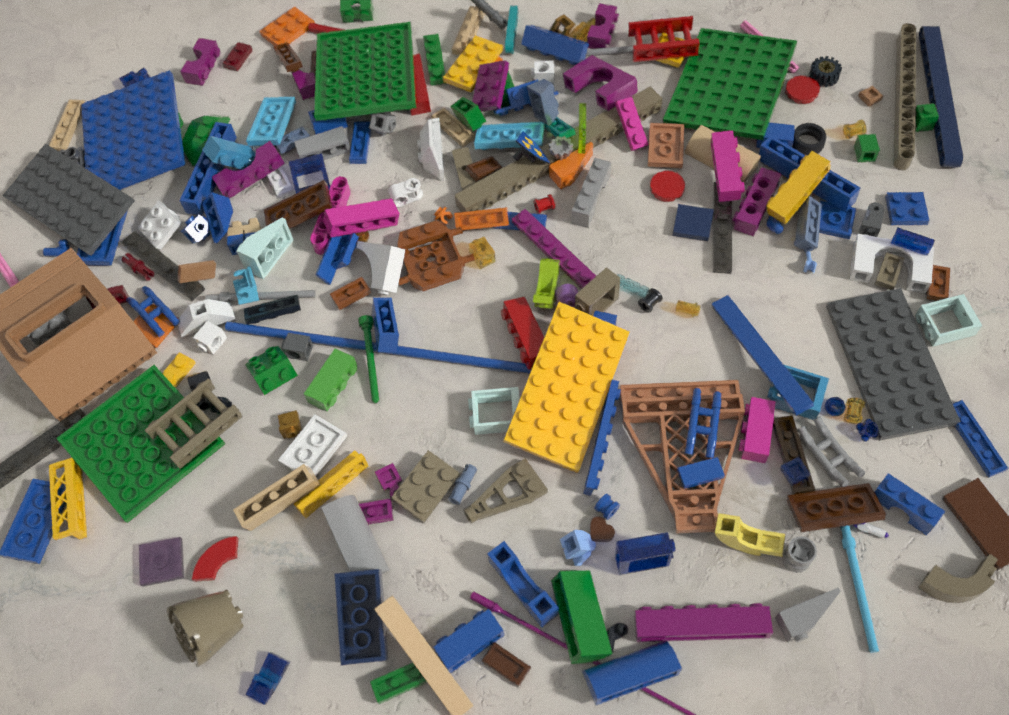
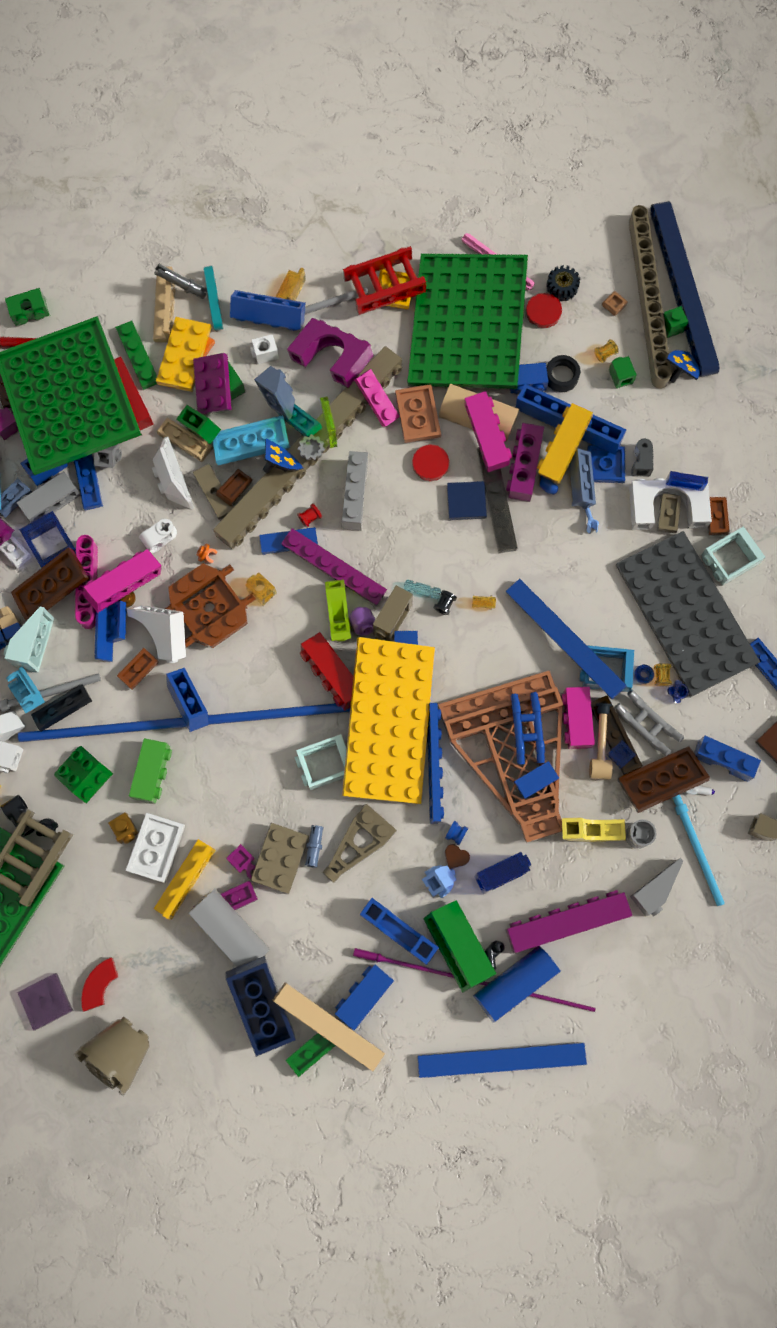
camera: 20 degrees left, 15 degrees up
(268, 678) = (189, 1082): clear blue slope -> none
(276, 497) = (139, 911): tan brick -> none
(297, 346) = (102, 743): dark grey brick -> none
(366, 323) = (167, 703): green piece -> none
(482, 218) = (249, 550): orange plate -> none
(506, 664) = (403, 1007): reddish brown tile -> none
(517, 98) = (247, 390): blue bracket -> none
(562, 25) = (270, 284): pearl gold window -> none
(567, 170) = (322, 470): orange slope -> none
(600, 33) = (313, 260): magenta arch -> none
(770, 480) = (600, 767): none -> tan piece
(907, 208) = (674, 434): blue plate -> none
(927, 150) = (684, 363): none -> shield

